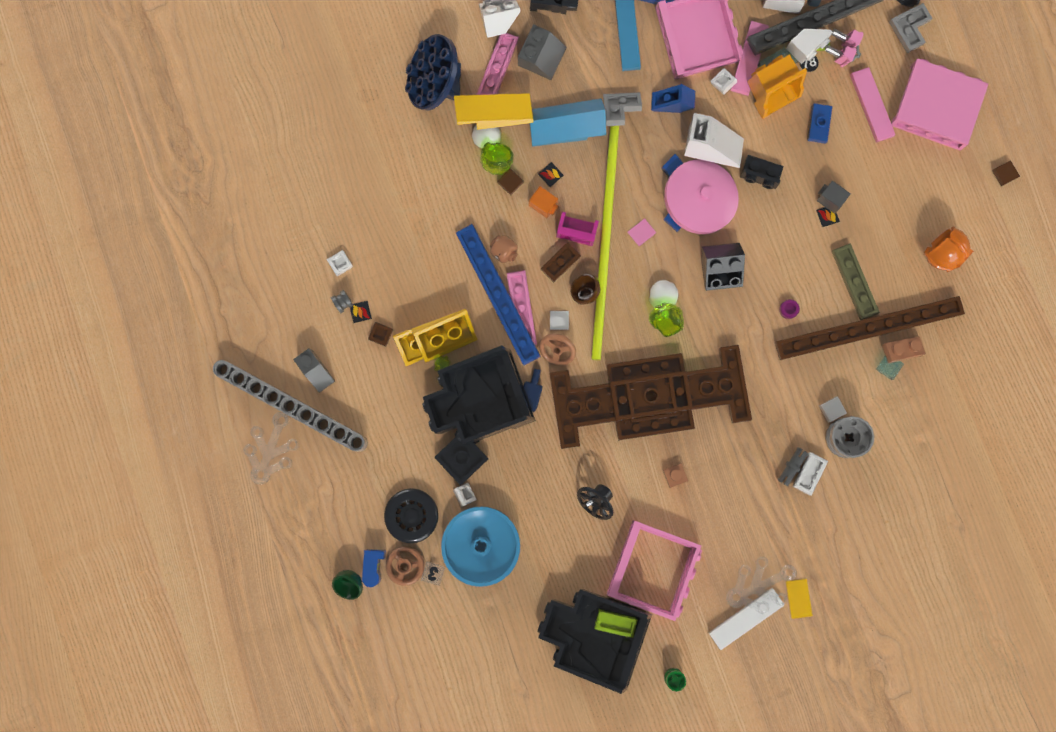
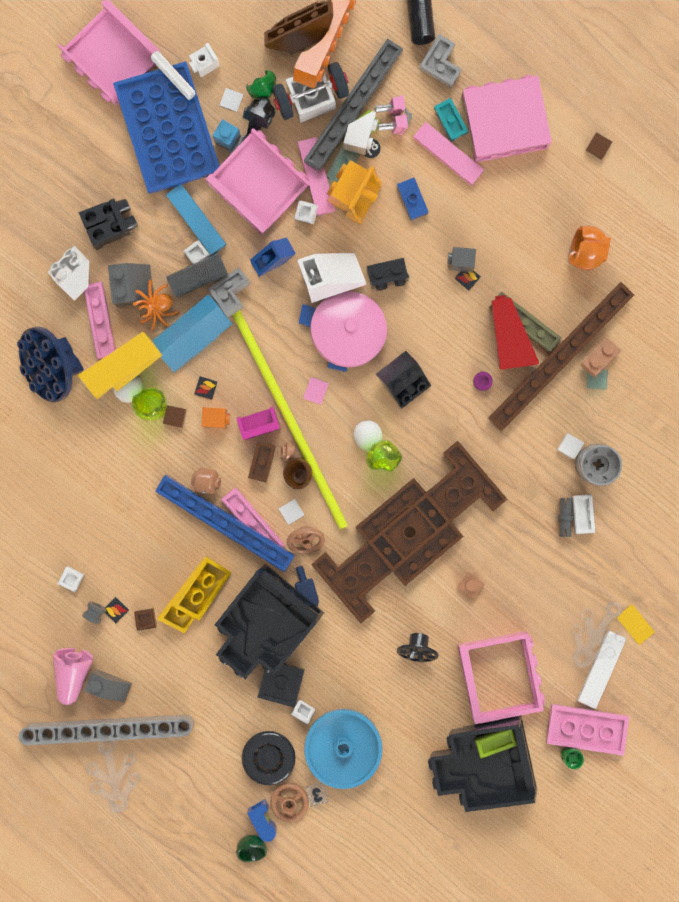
camera: 30 degrees left, 5 degrees up
(289, 339) = (70, 673): none -> bright pink cone
(441, 363) = (214, 613): clear neon green plate -> none
(551, 81) = (155, 305): none -> orange animal
(587, 267) = (287, 452): none -> nougat plate
(596, 76) = (190, 278): none -> dark grey piece
(611, 61) = (196, 252): none -> white tile
(703, 663) = (587, 729): none -> bright pink plate
(837, 285) = (511, 337): none -> red slope
(891, 78) = (450, 119): none -> teal plate

